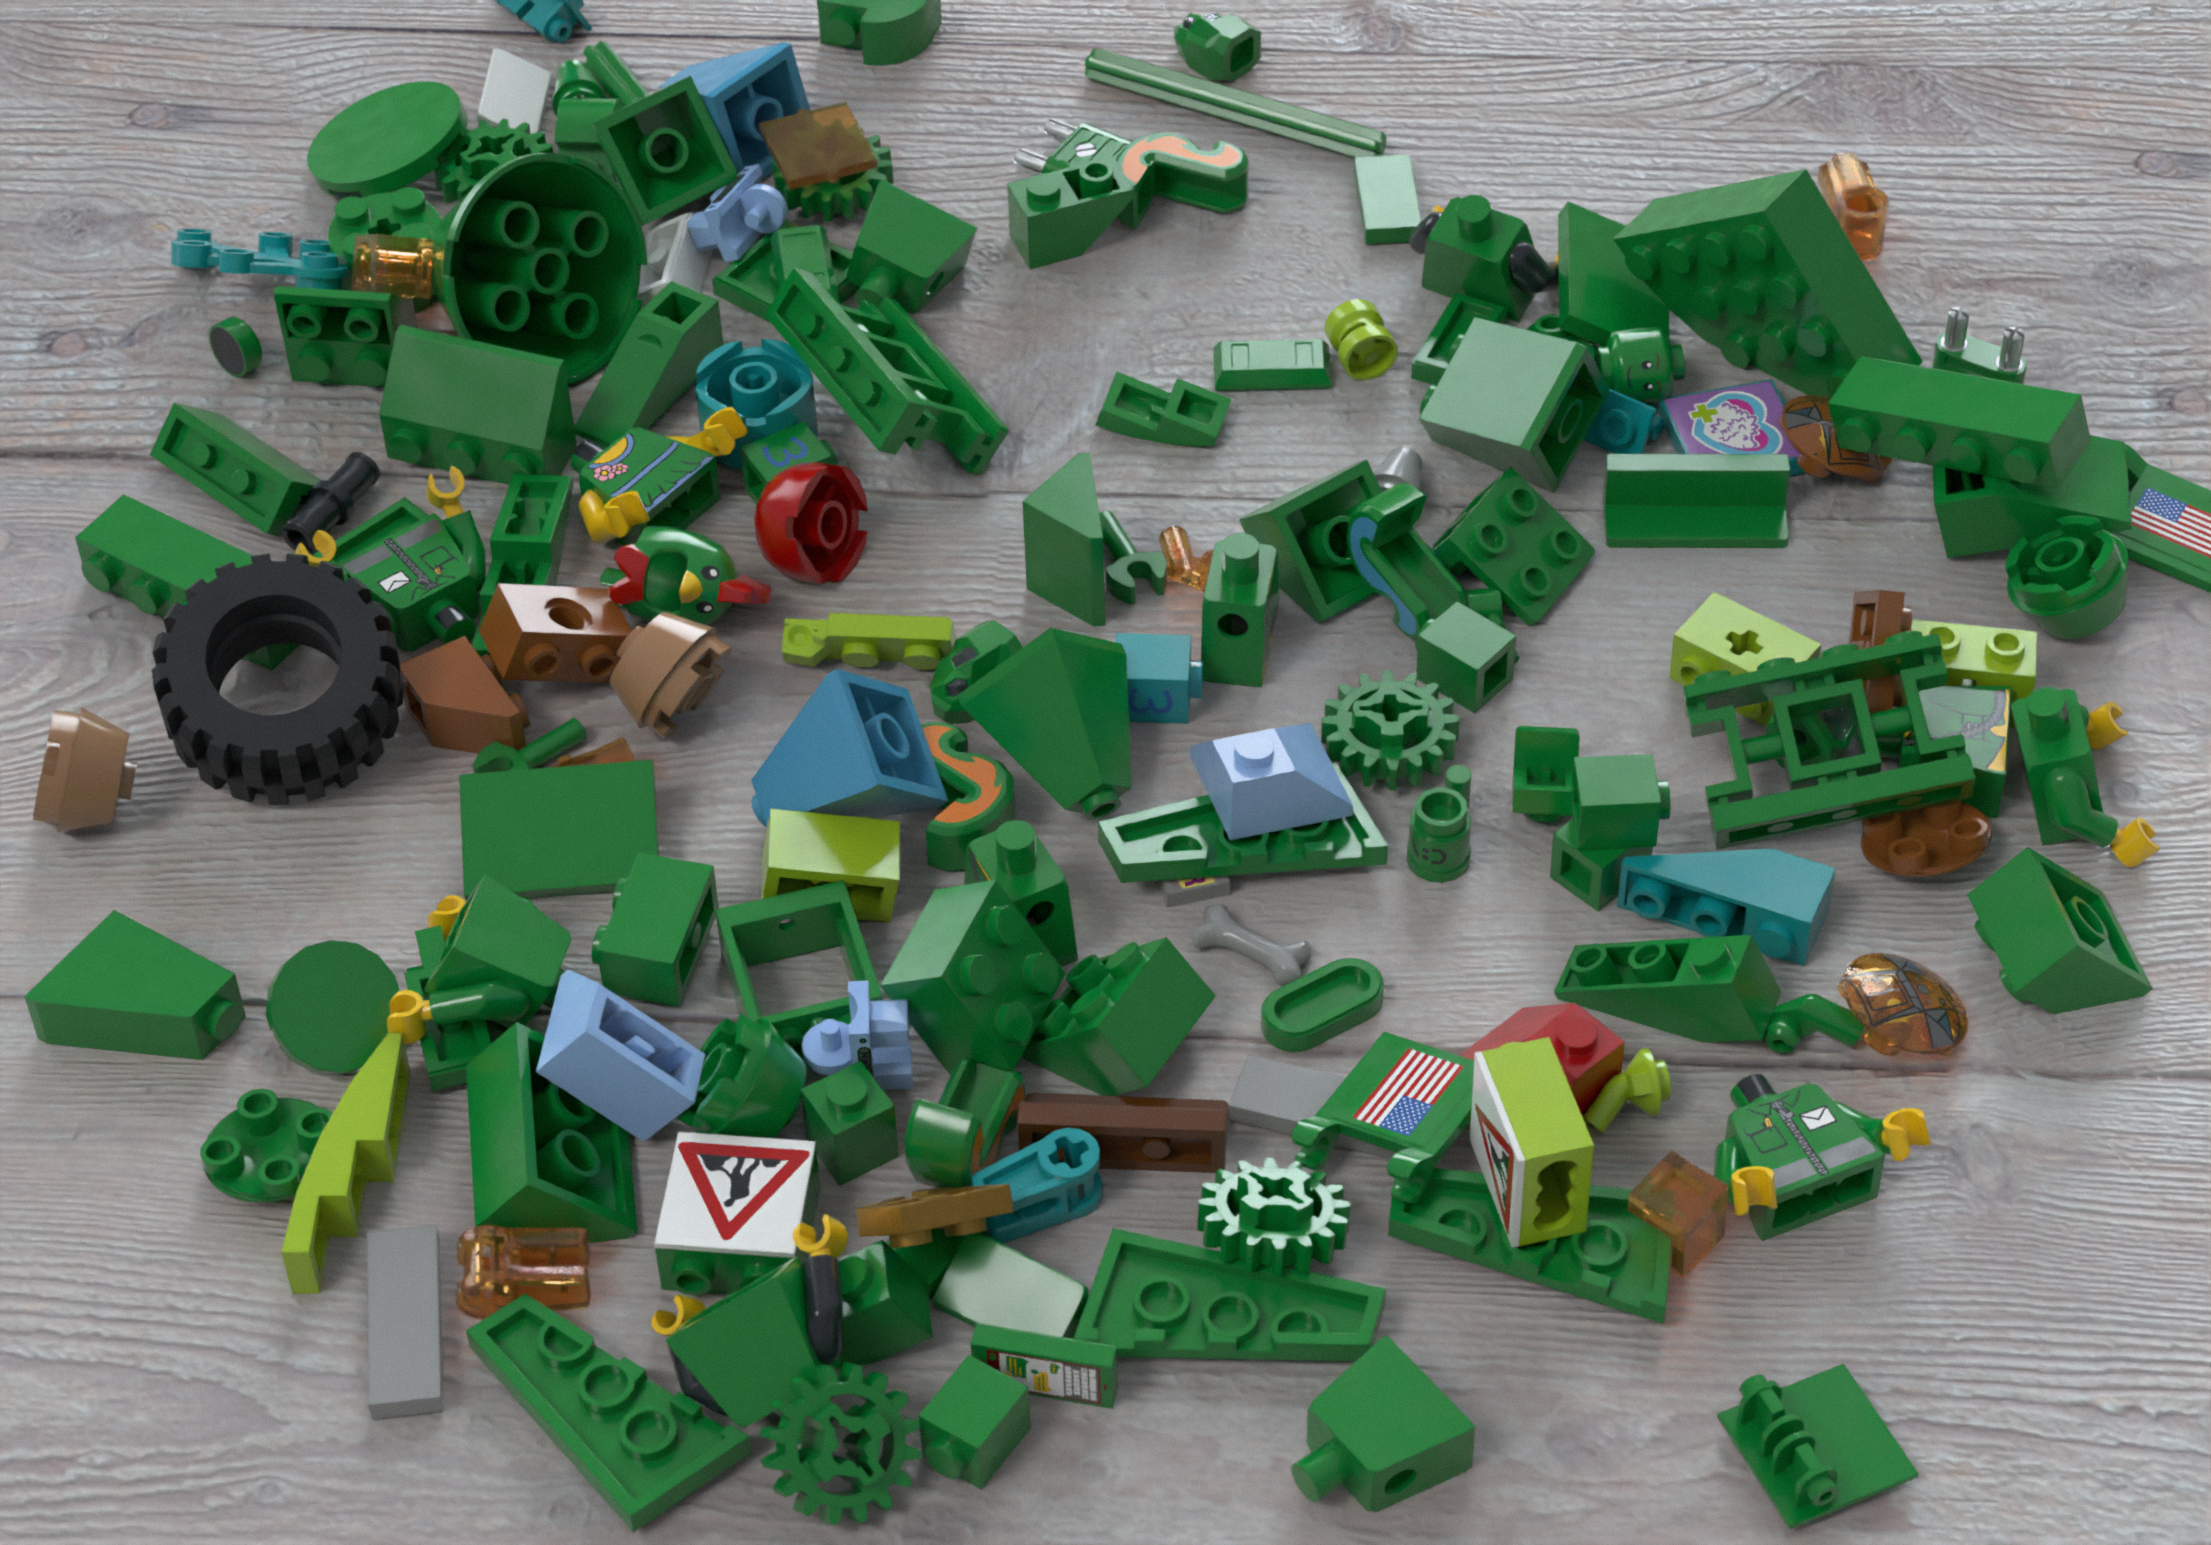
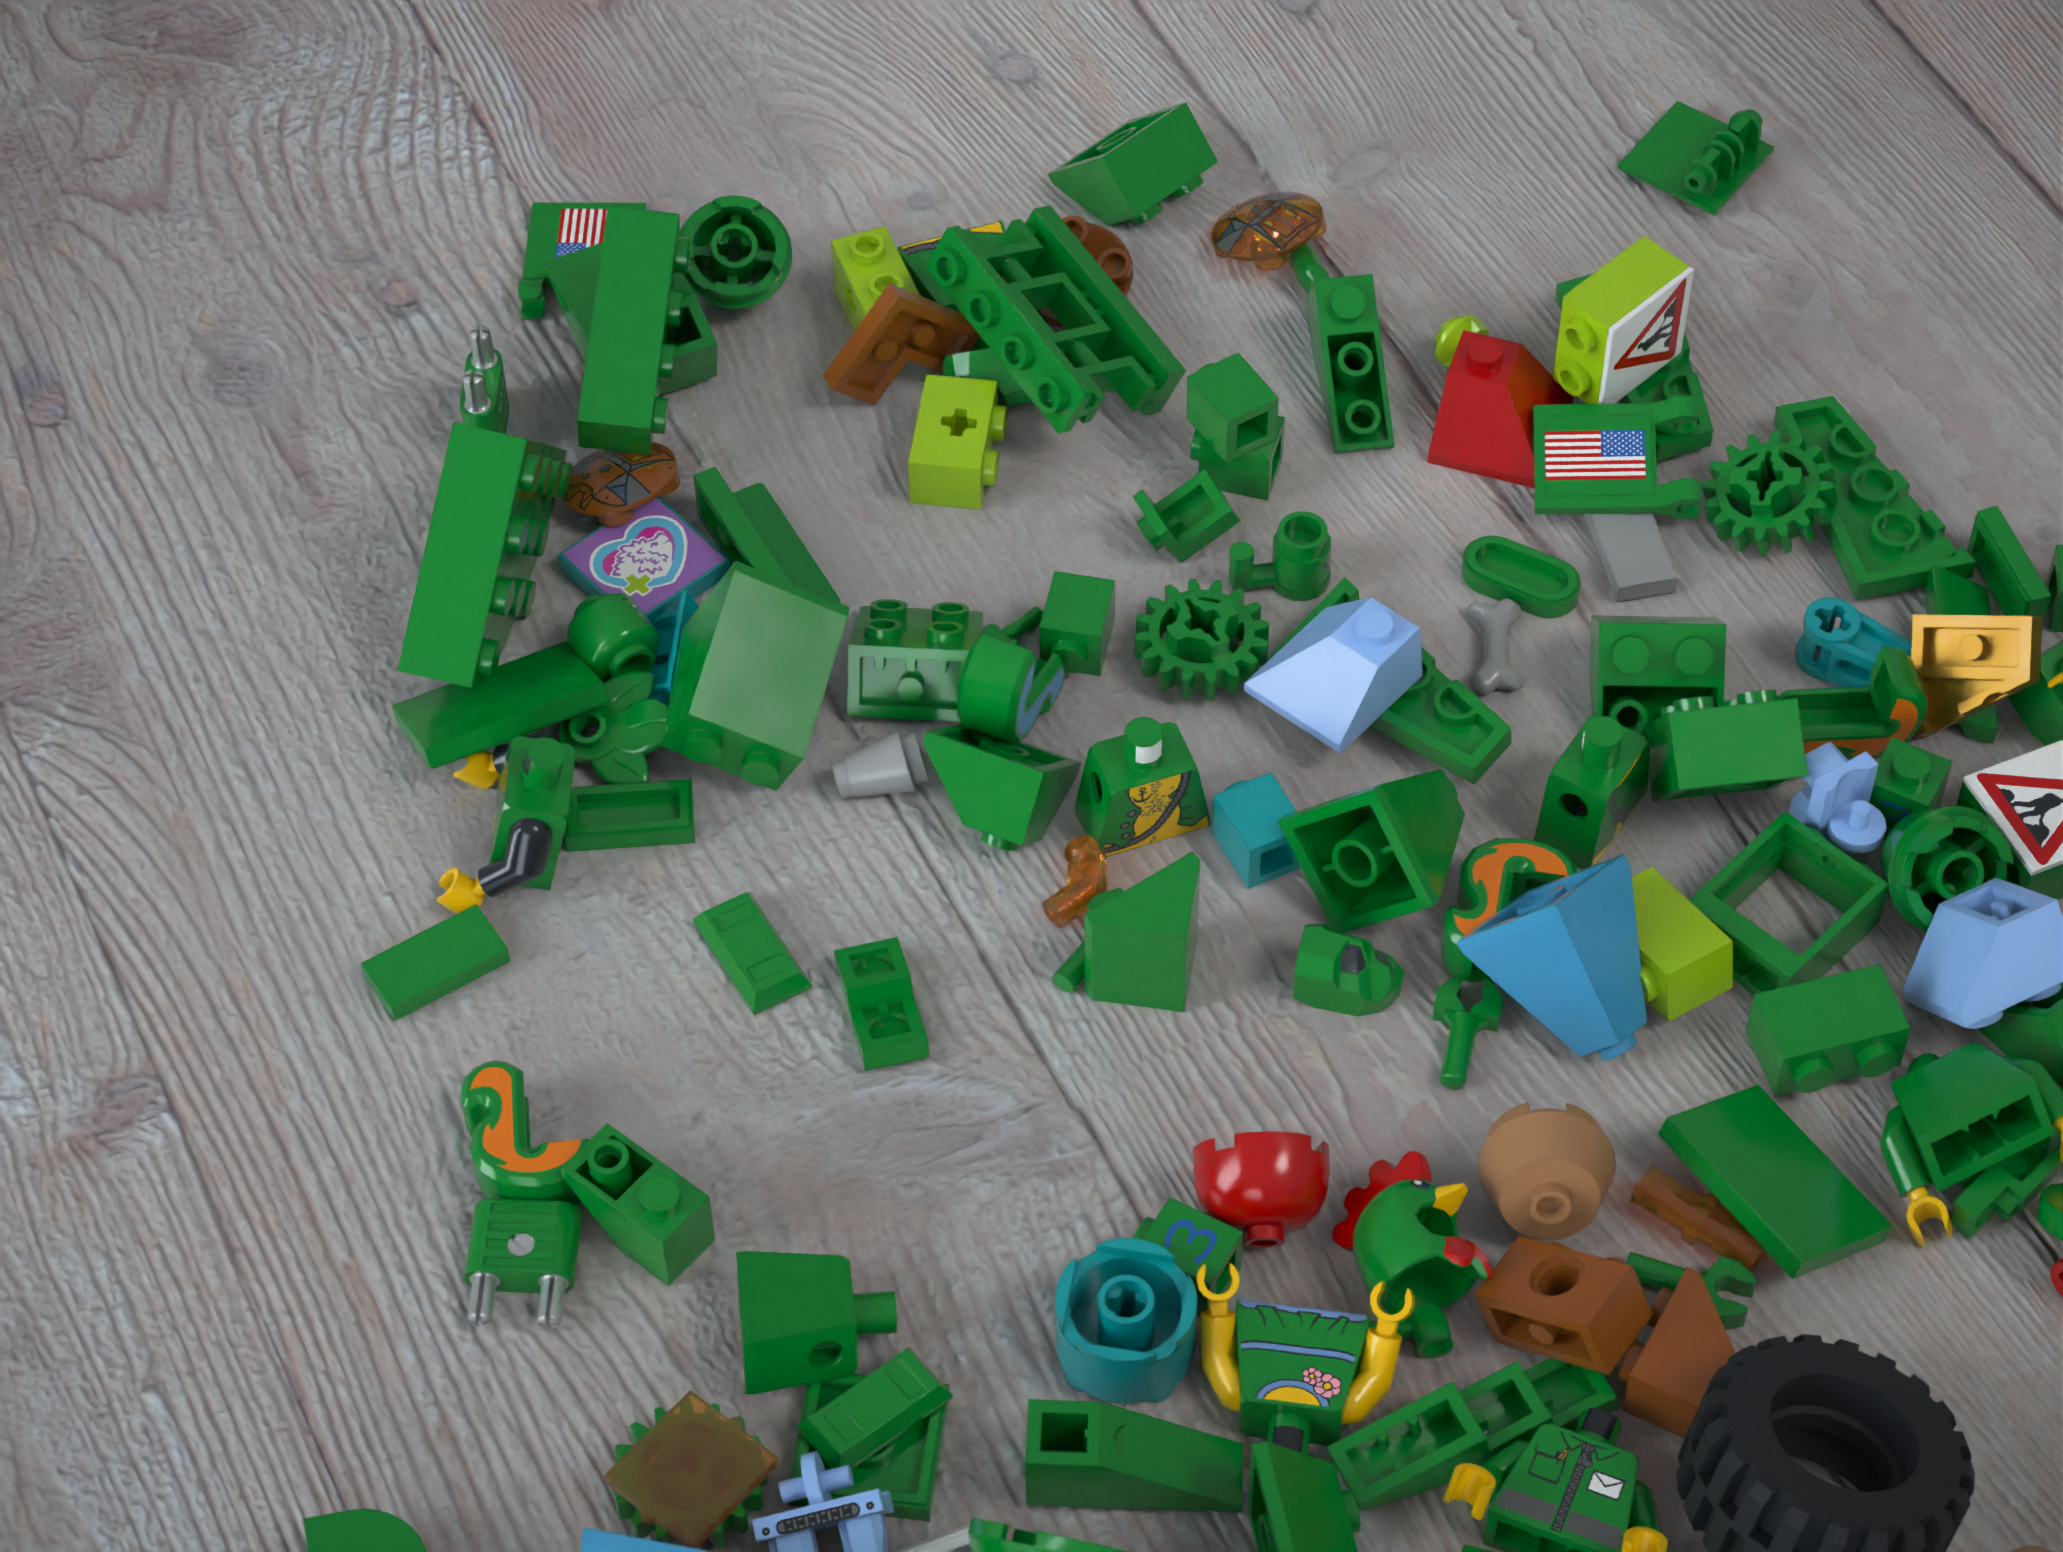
camera: 120 degrees left, 5 degrees up
(869, 638) = (1363, 1066): lime hinge -> none
(885, 373) = (1074, 1174): green fence -> none
(1134, 1130) = (1763, 636): reddish brown panel -> none
(1218, 45) = (250, 1221): green rock -> none
(1234, 105) = (345, 1171): axle -> none
(1361, 339) = (690, 874): lime wheel -> none
(1383, 1433) = (1897, 365): green torso -> none
(1684, 1206) = (1571, 260): clear orange panel -> none
(1733, 894) = (1222, 321): teal slope -> none
(1804, 1154) = (1466, 233): green torso -> none
(1855, 202) = (278, 569): clear orange piece -> none
(2061, 776) = (961, 190): green torso -> none

